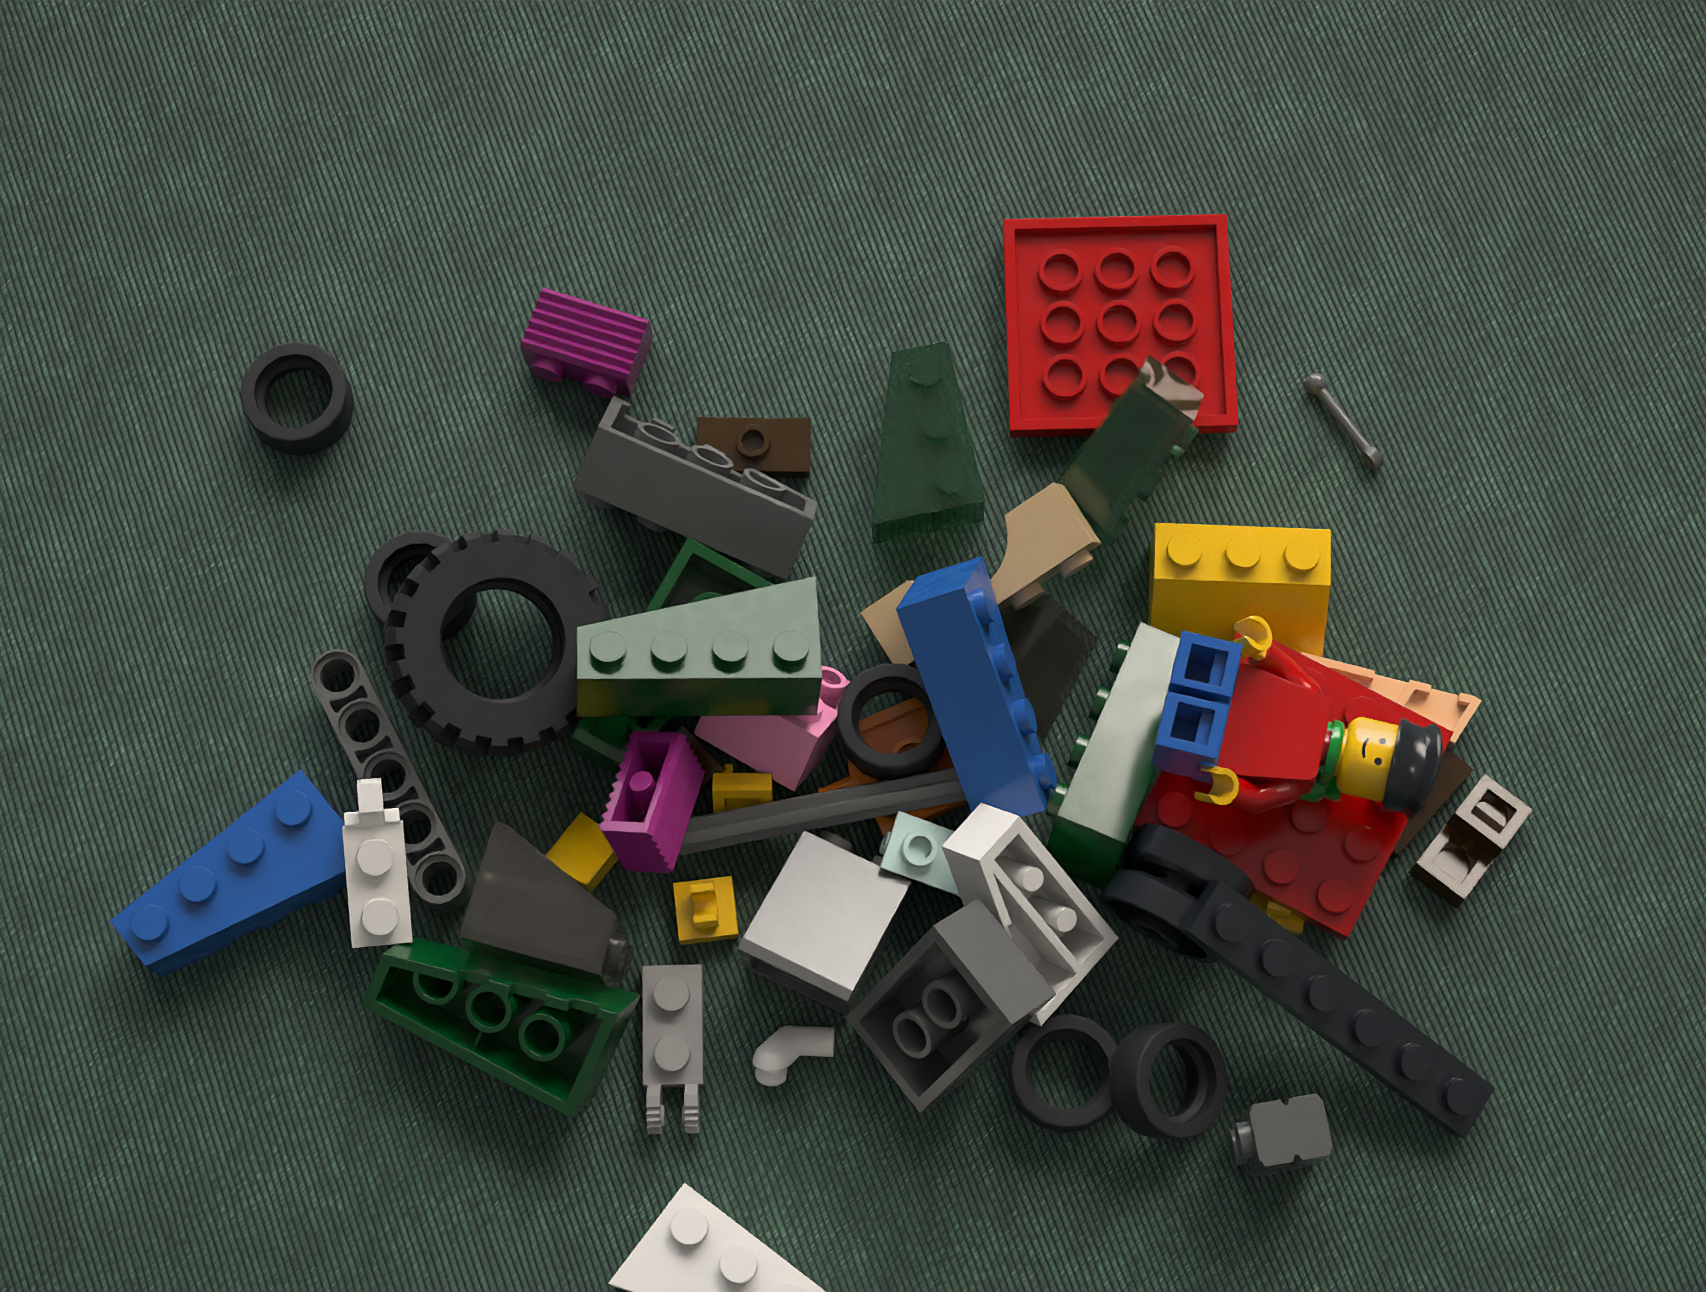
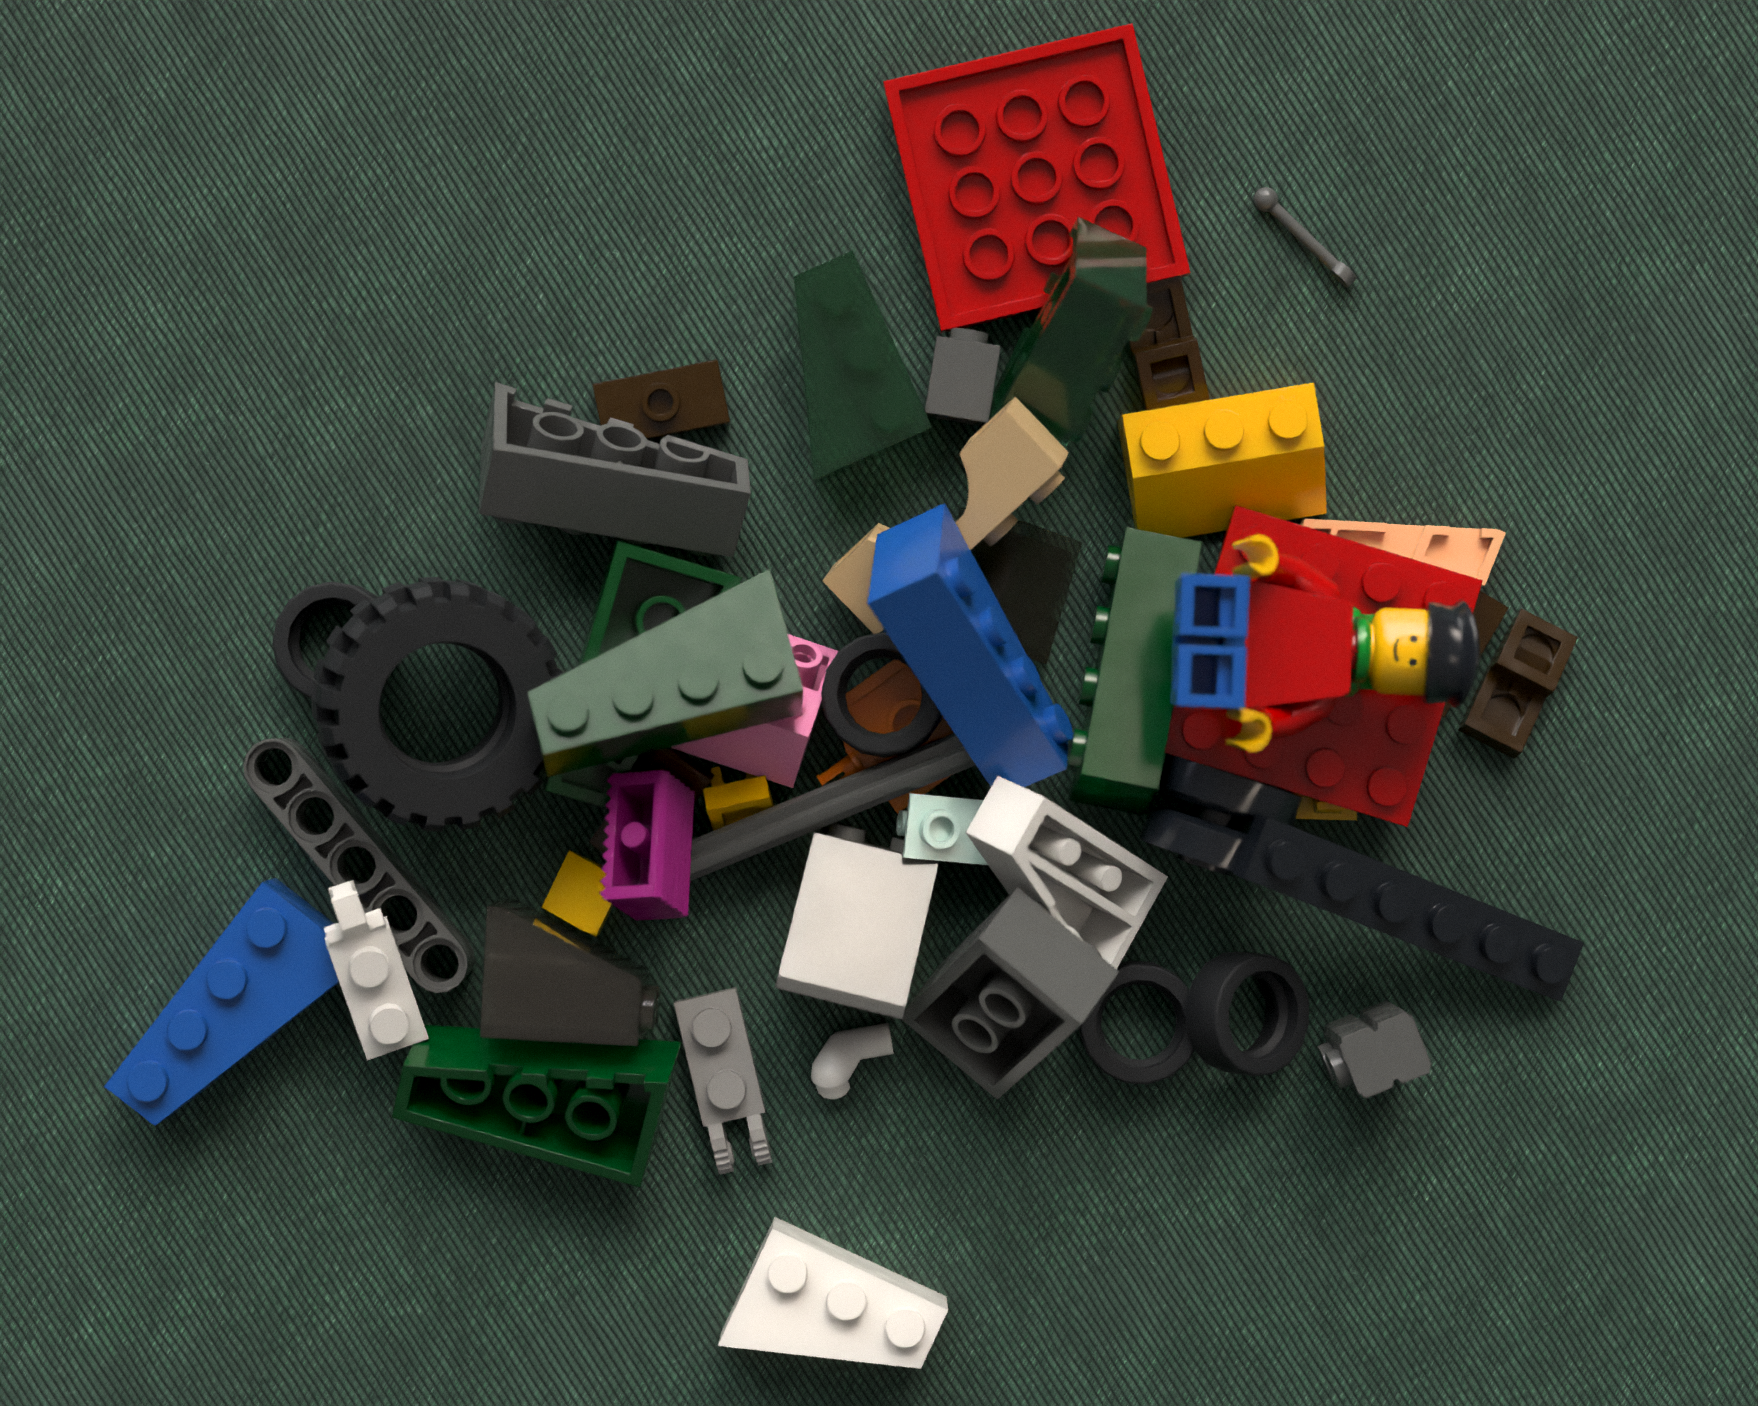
camera: 15 degrees left, 15 degrees up
(277, 363) = (95, 455): black tyre -> none
(585, 344) = (449, 325): magenta brick -> none
(706, 910) = (726, 927): yellow tile -> none
(1019, 469) = (962, 378): none -> dark grey brick
(1203, 480) = (1167, 352): none -> dark brown slope

